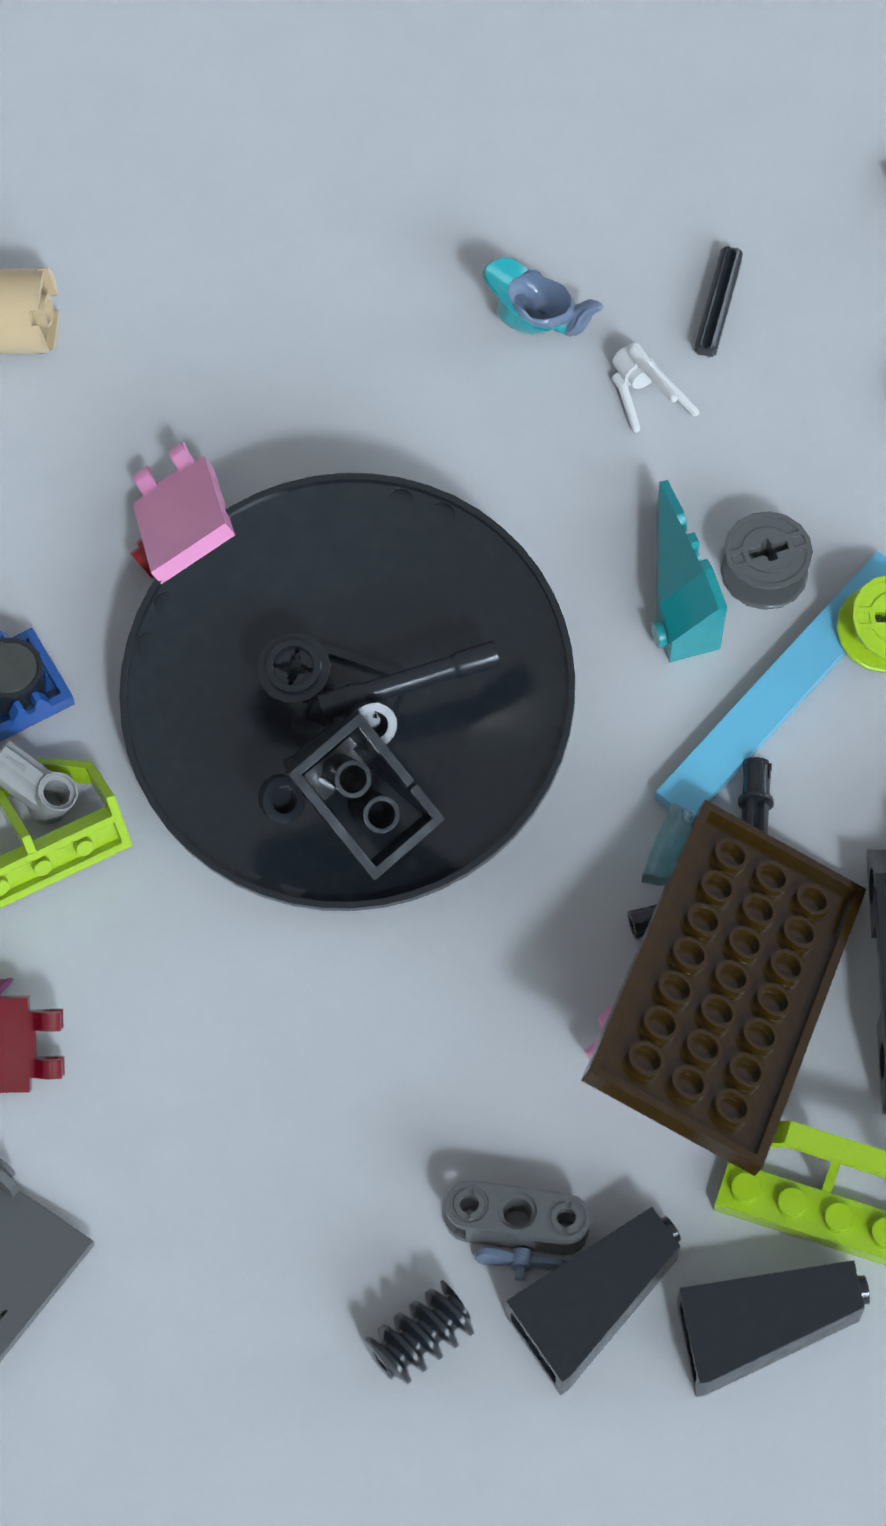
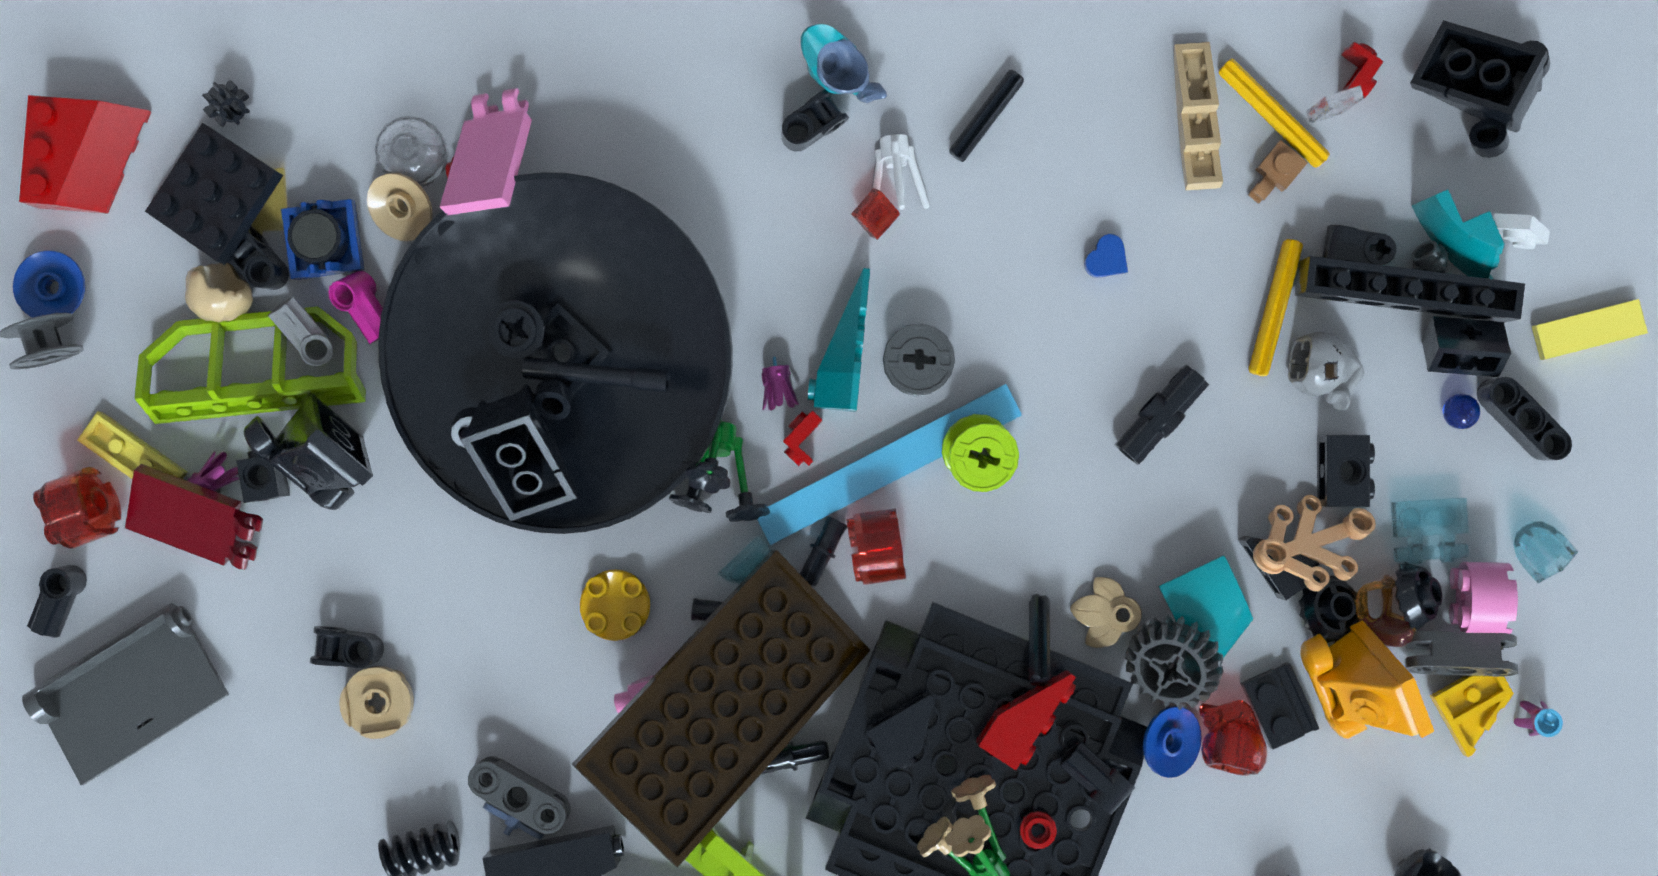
camera: 25 degrees right, 25 degrees up
(43, 986) = (251, 488): none -> black brick
(71, 617) = (389, 211): none -> tan dish
(81, 559) = (412, 148): none -> clear cylinder
(94, 739) = (357, 296): none -> dark pink piece
(104, 892) = (314, 452): none -> black piece
(218, 1128) = (339, 647): none -> black piece
(287, 1207) = (363, 718): none -> tan plate
(532, 366) = (818, 117): none -> black piece
(535, 955) = (614, 605): none -> yellow dish
(590, 743) = (712, 478): none -> black plant
(613, 635) = (777, 383): none -> flat silver piece
(644, 433) = (875, 213): none -> clear red plate
(668, 699) = (801, 428): none -> red bracket
(819, 761) = (878, 546): none -> clear red brick
(835, 1042) = (797, 755): none -> black axle

